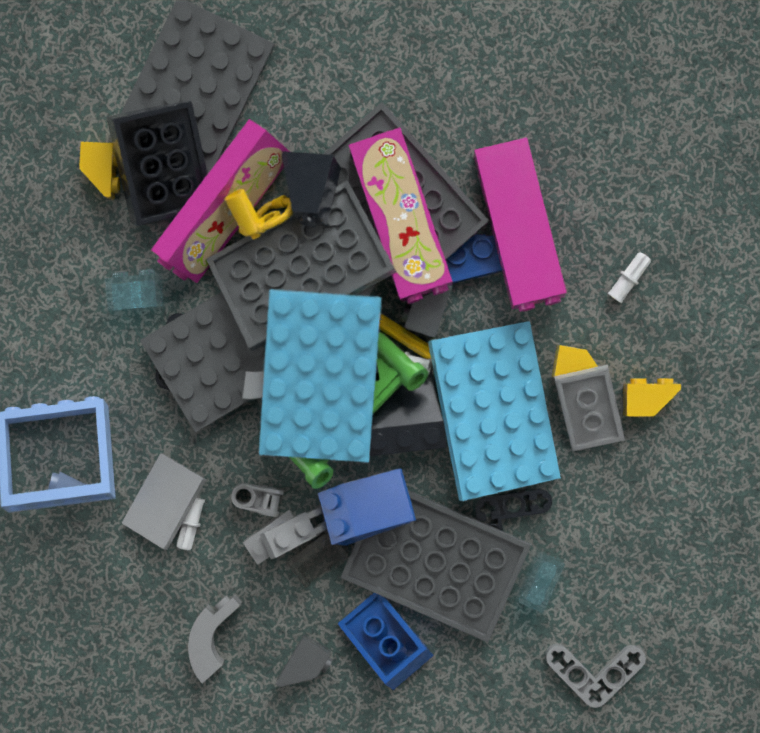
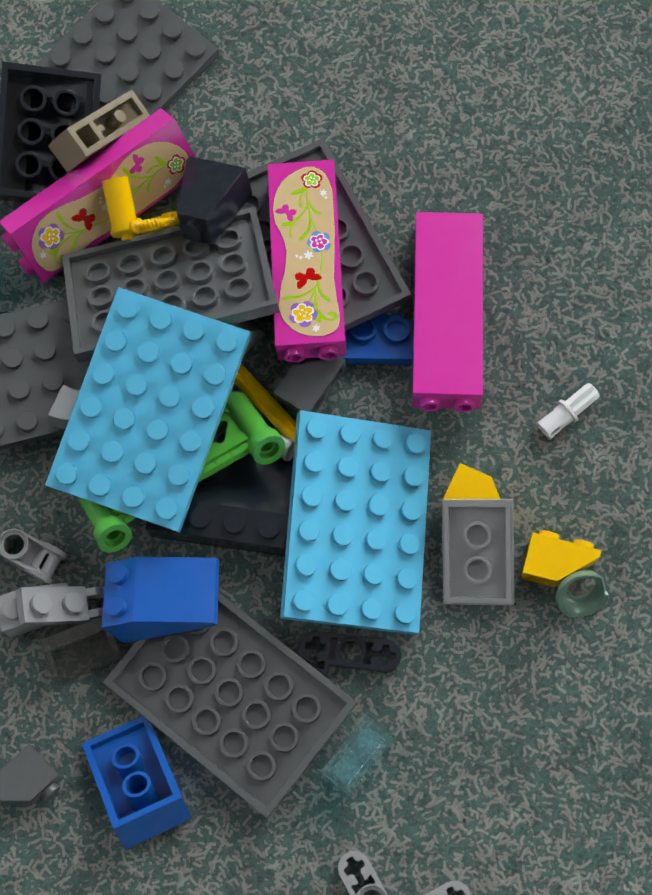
camera: 20 degrees right, 15 degrees down
(205, 151) = (98, 130): none -> dark tan slope
(675, 422) = (583, 604): none -> sand green piece

